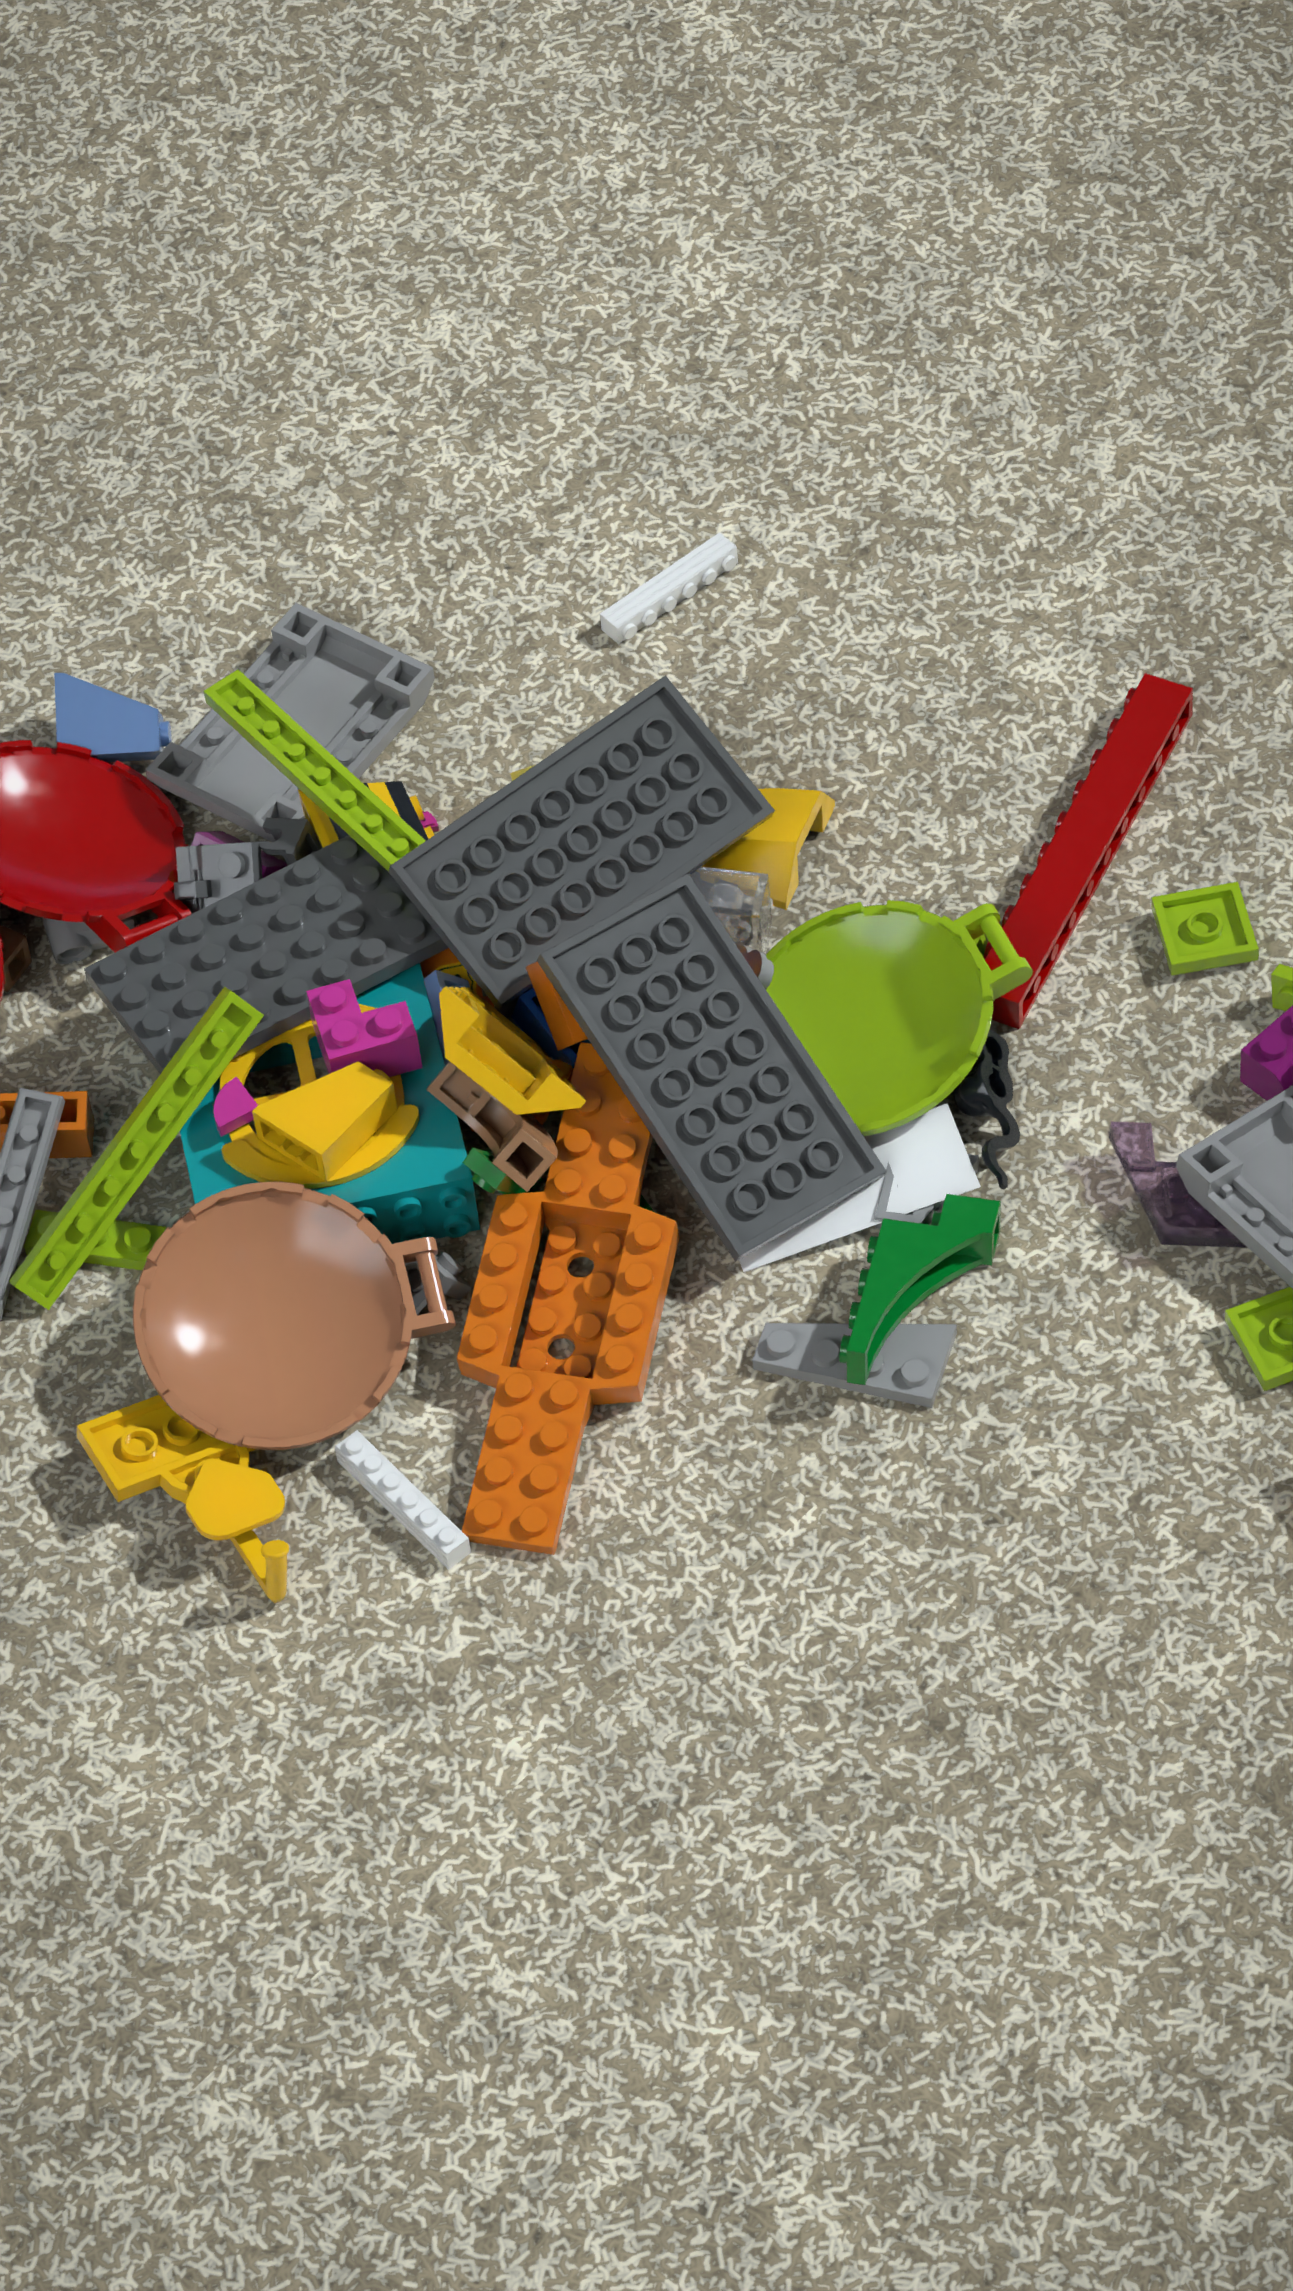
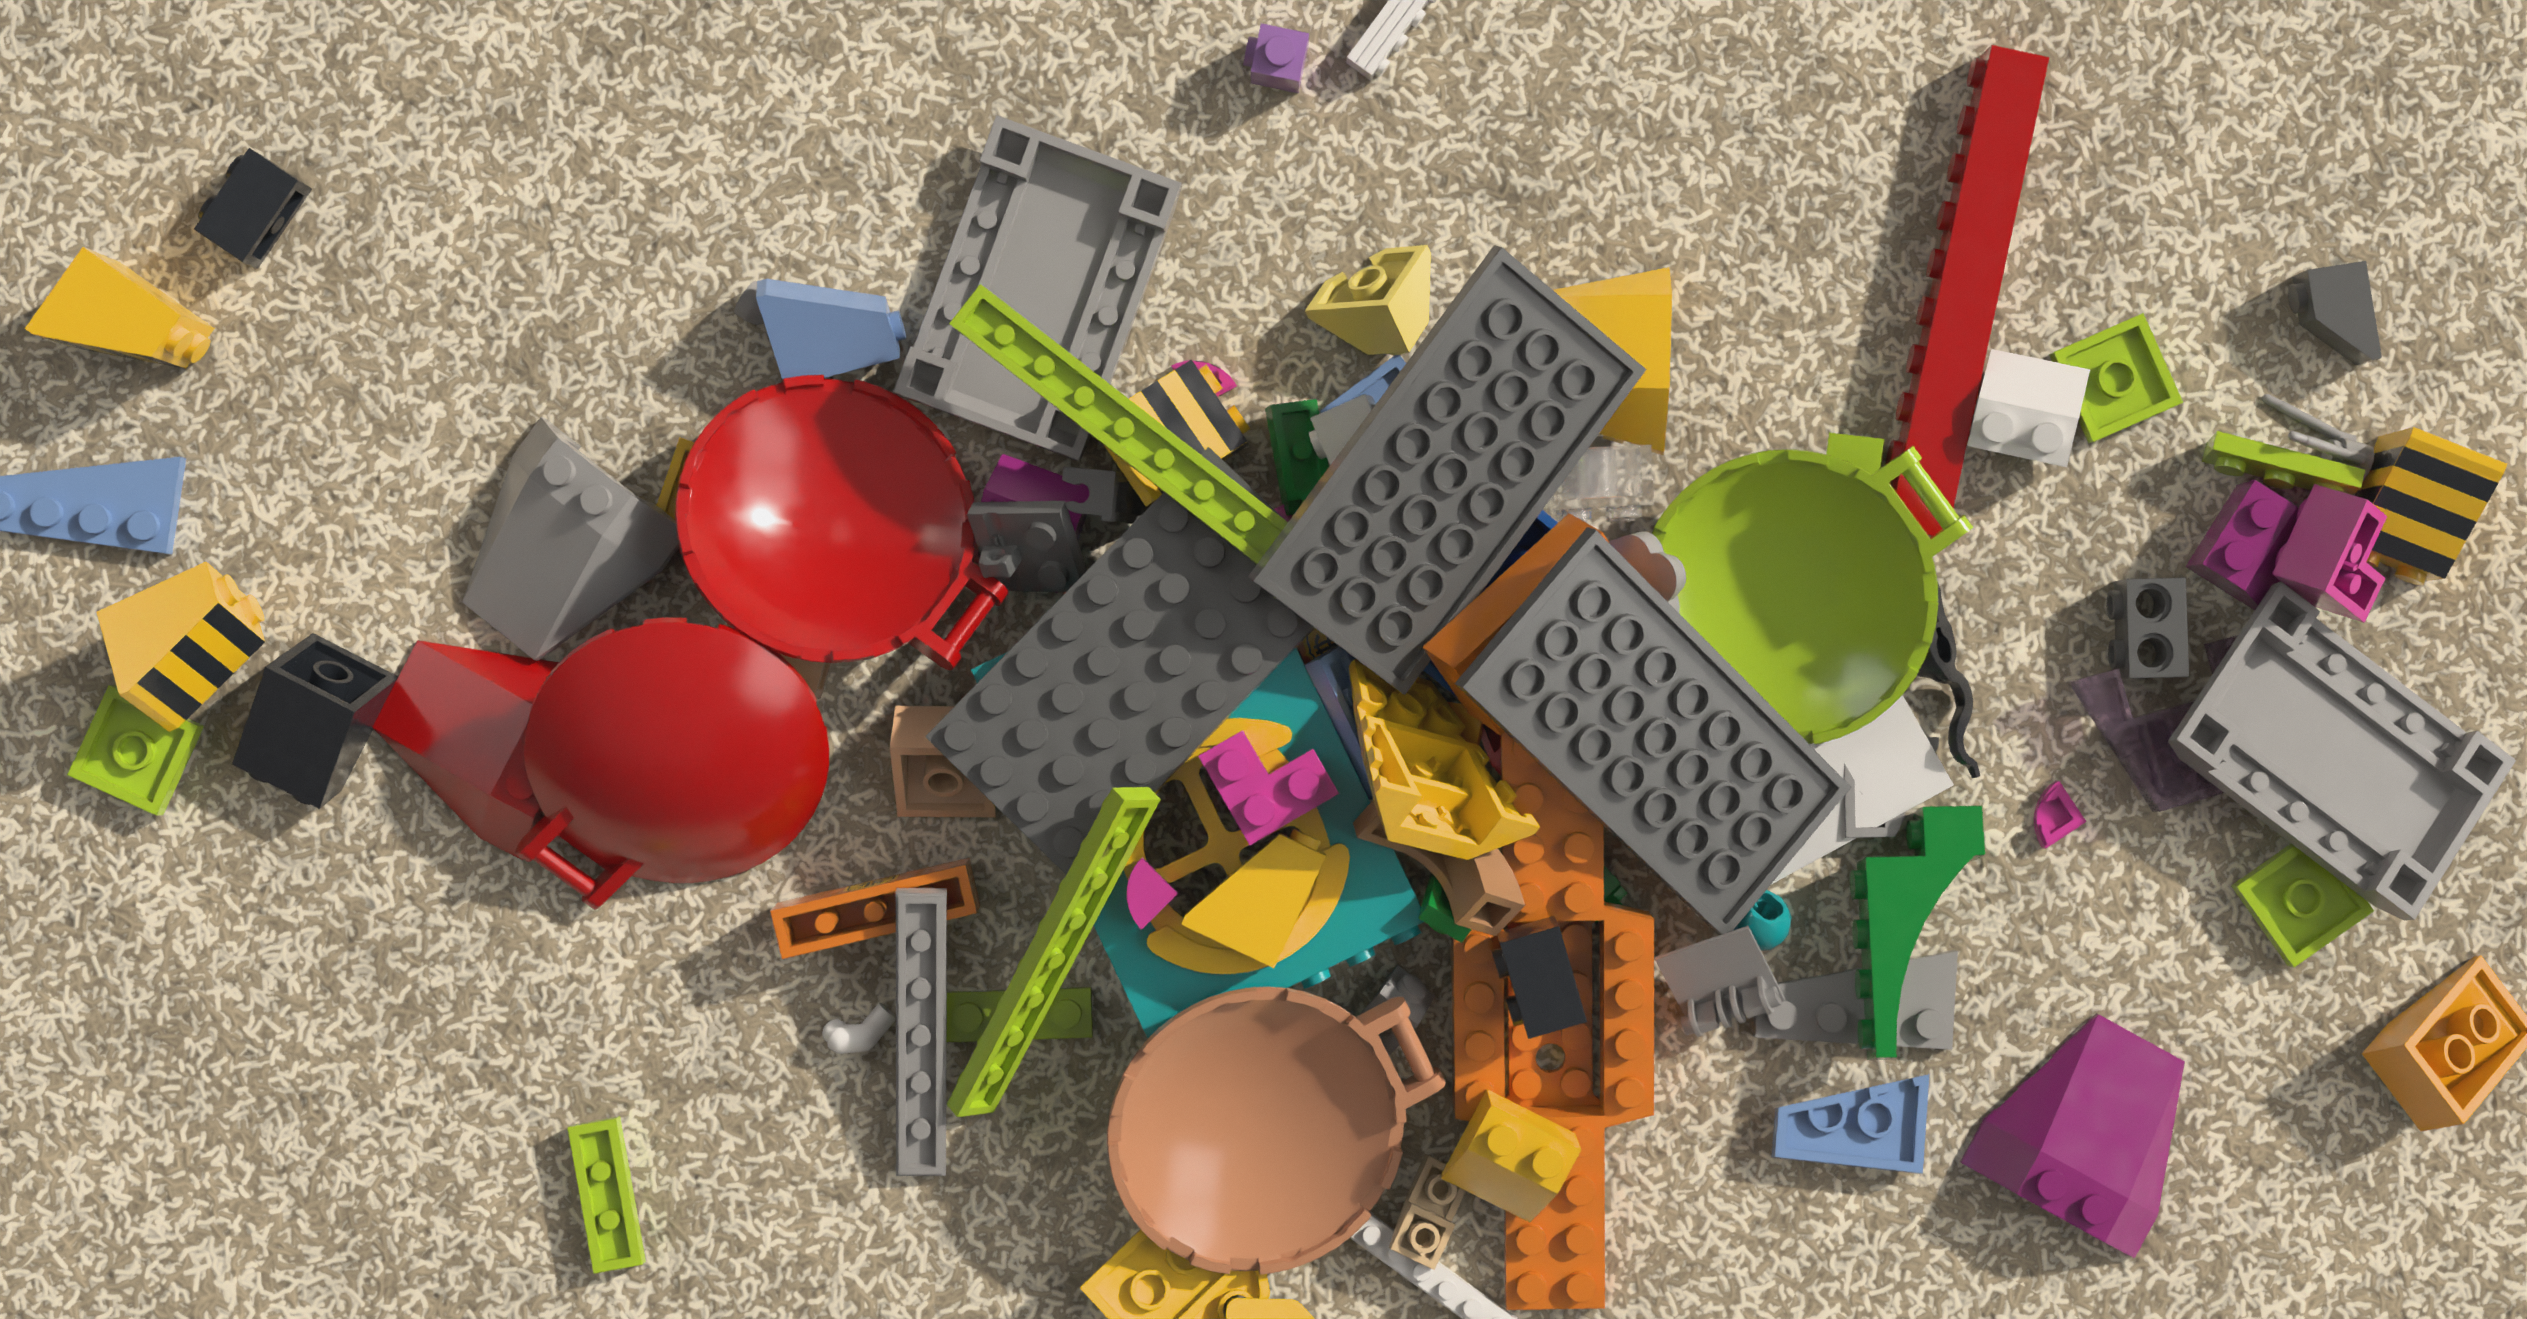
camera: 15 degrees left, 35 degrees up
(46, 709) = (747, 306): none -> light grey hinge
(89, 1046) = (923, 777): none -> light nougat slope
(415, 1440) = (1427, 1215): none -> tan slope
(494, 1378) = (1512, 1157): none -> yellow slope
(542, 606) = (1277, 57): none -> medium lavender brick
(557, 1230) = (1540, 977): none -> black brick
(728, 1298) = (1720, 981): none -> light grey hinge
(779, 1266) = (1768, 921): none -> teal piece
(838, 1451) = (1859, 1128): none -> medium blue wing
(1048, 1492) = (2088, 1134): none -> magenta wedge
(1076, 1242) = (2055, 815): none -> dark pink tile
(1113, 933) = (2028, 408): none -> white slope
(1190, 1098) = (2164, 628): none -> dark grey brick

